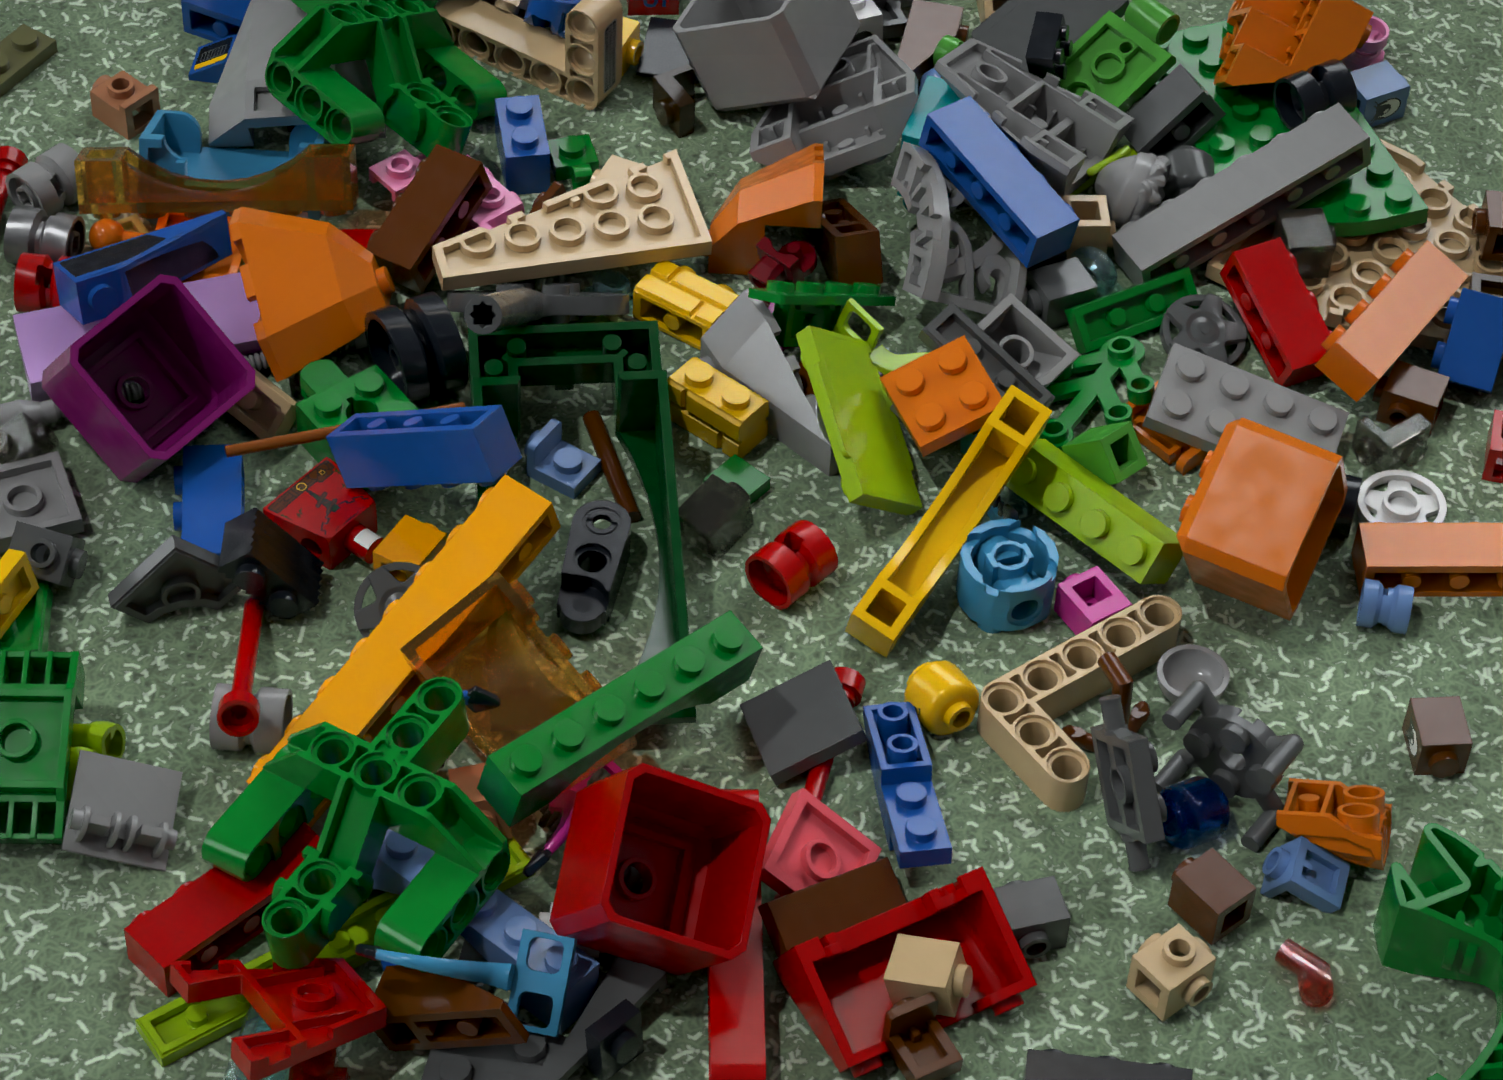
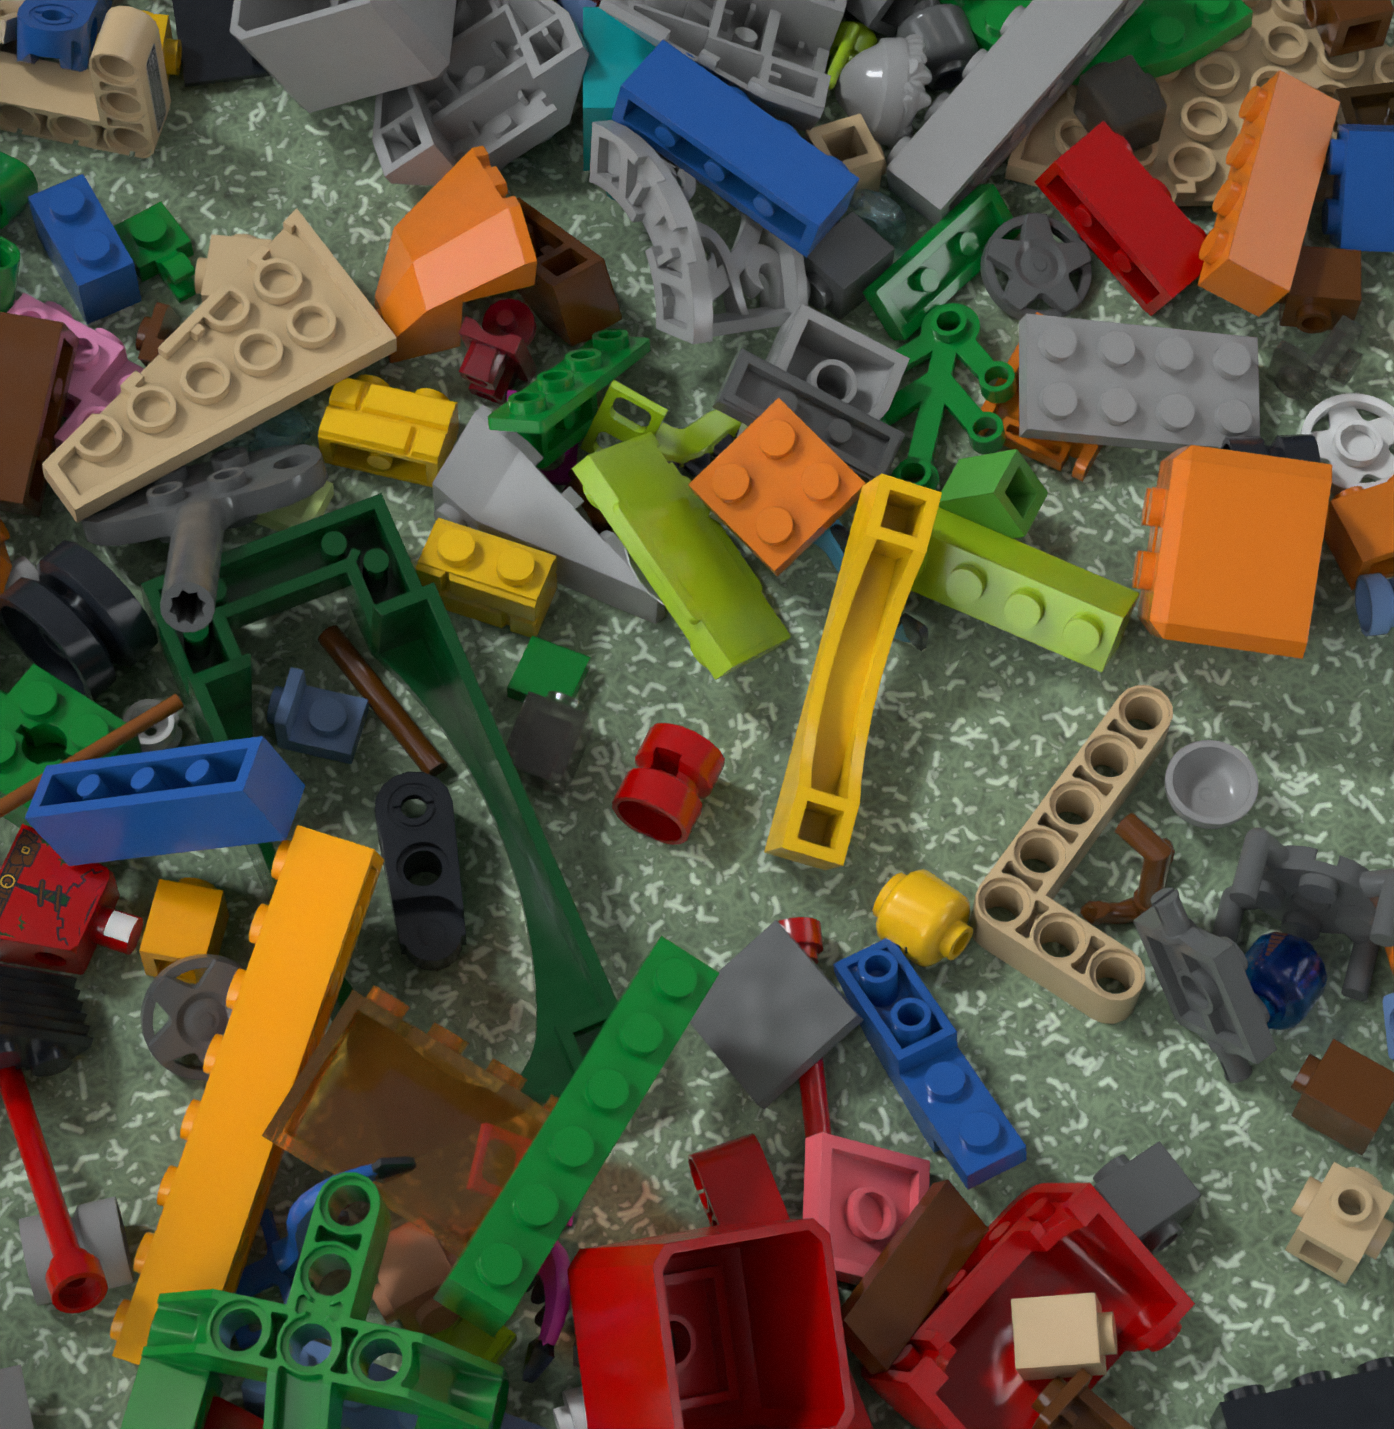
camera: 20 degrees left, 15 degrees up
(674, 99) = (250, 121): dark brown bracket -> none
(1007, 575) = (938, 714): dark azure brick -> none
(1088, 599) = (1056, 703): dark pink brick -> none

